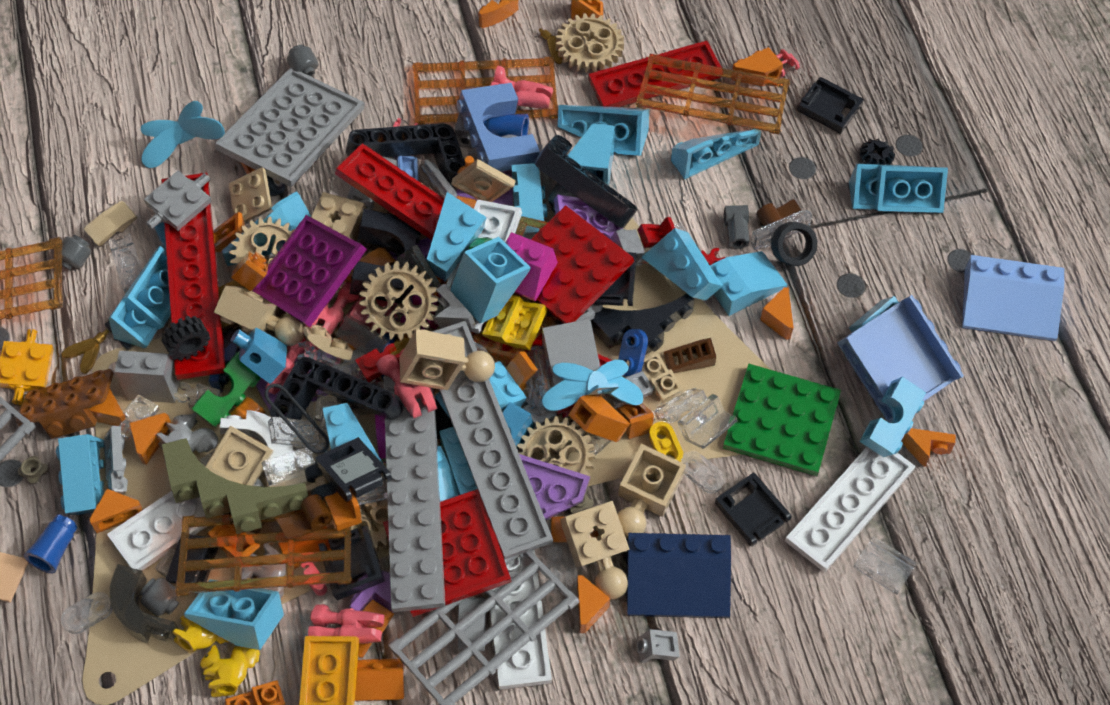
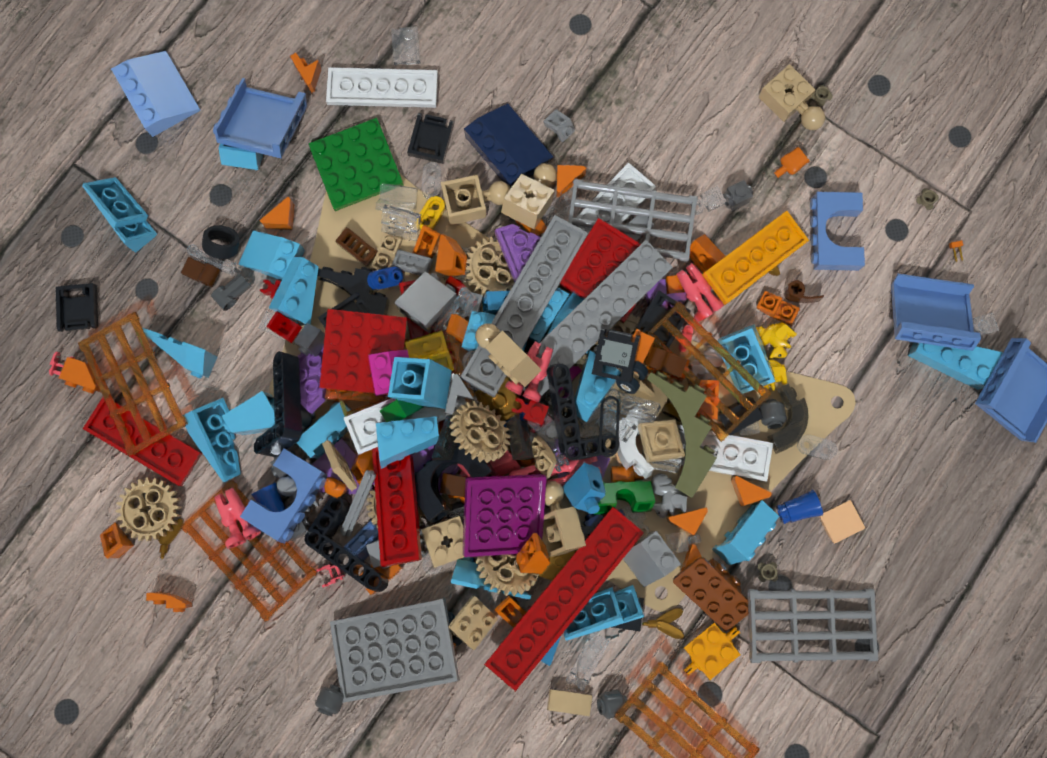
camera: 125 degrees left, 20 degrees up
(114, 462) = (721, 524): light grey hinge -> none
(170, 133) = (473, 728): medium azure piece -> none
(177, 200) = (524, 658): light grey plate -> none
(185, 338) = (621, 541): black tyre -> none
(583, 381) = (438, 278): medium azure piece -> none
(868, 157) = (95, 256): black gear -> none
(905, 401) = (296, 89): medium azure arch -> none

